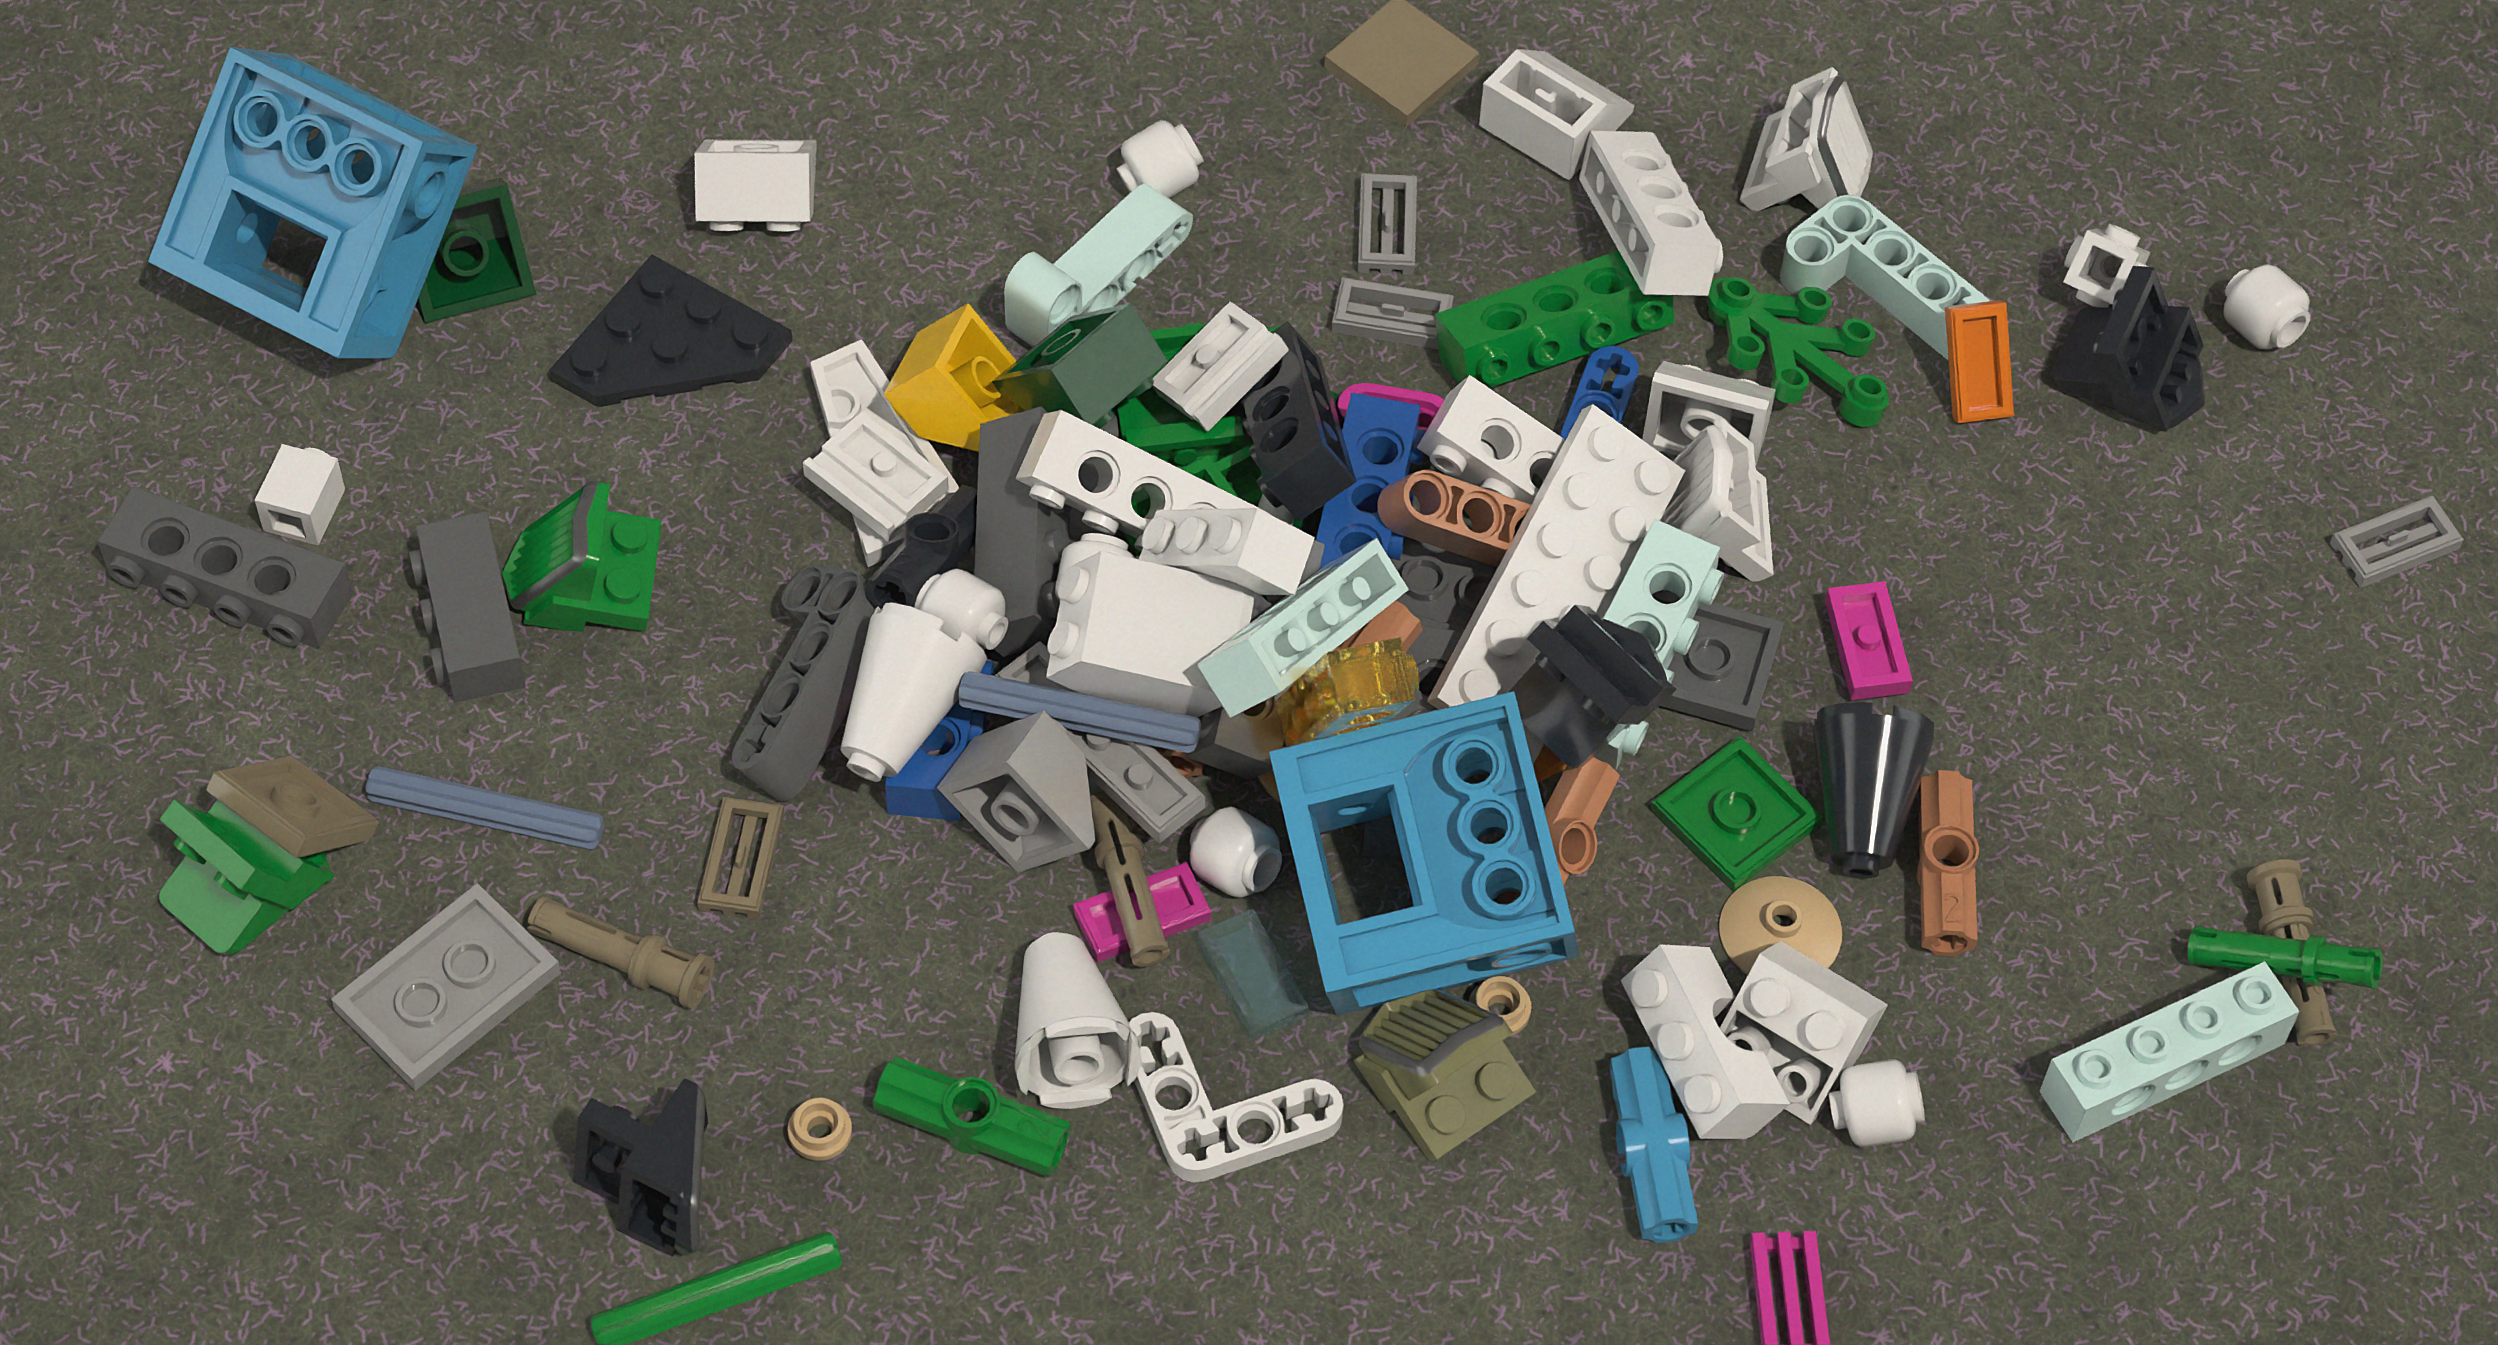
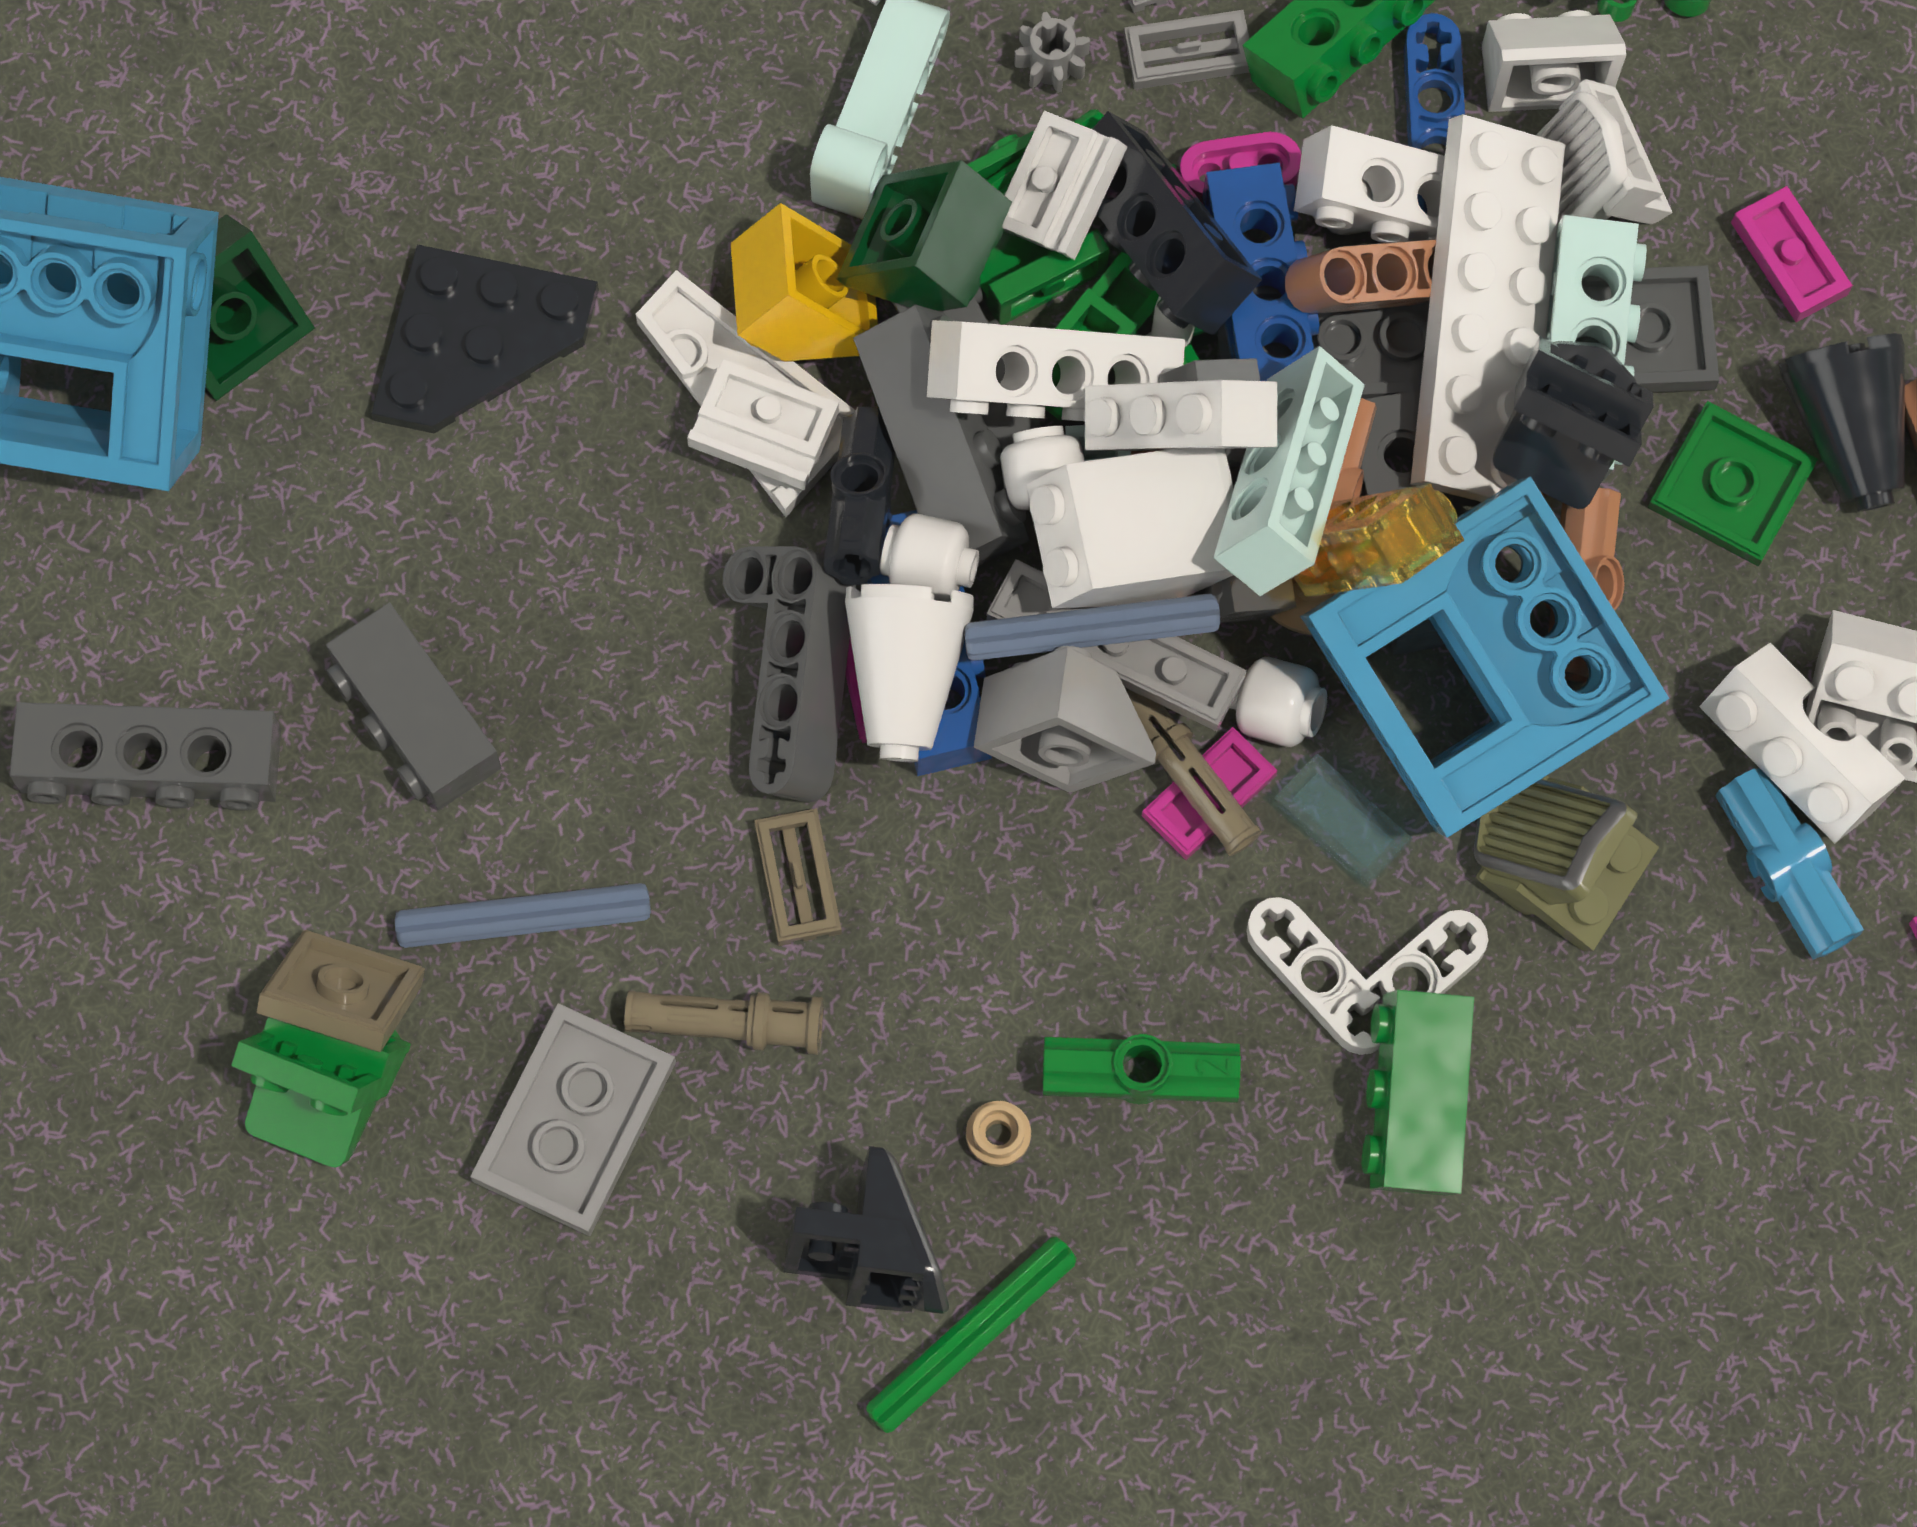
camera: 20 degrees left, 15 degrees up
(300, 494) = (184, 642): white brick -> none
(584, 565) = (508, 621): green piece -> none
(755, 183) = (489, 123): white slope -> none
(1070, 1027) = (1197, 941): white cone -> none
(1214, 1218) = (1419, 1092): none -> brick
(1268, 274) = (1059, 64): none -> light grey gear
(1505, 991) = (1608, 764): tan plate -> none
(1749, 926) = (1793, 604): tan dish -> none

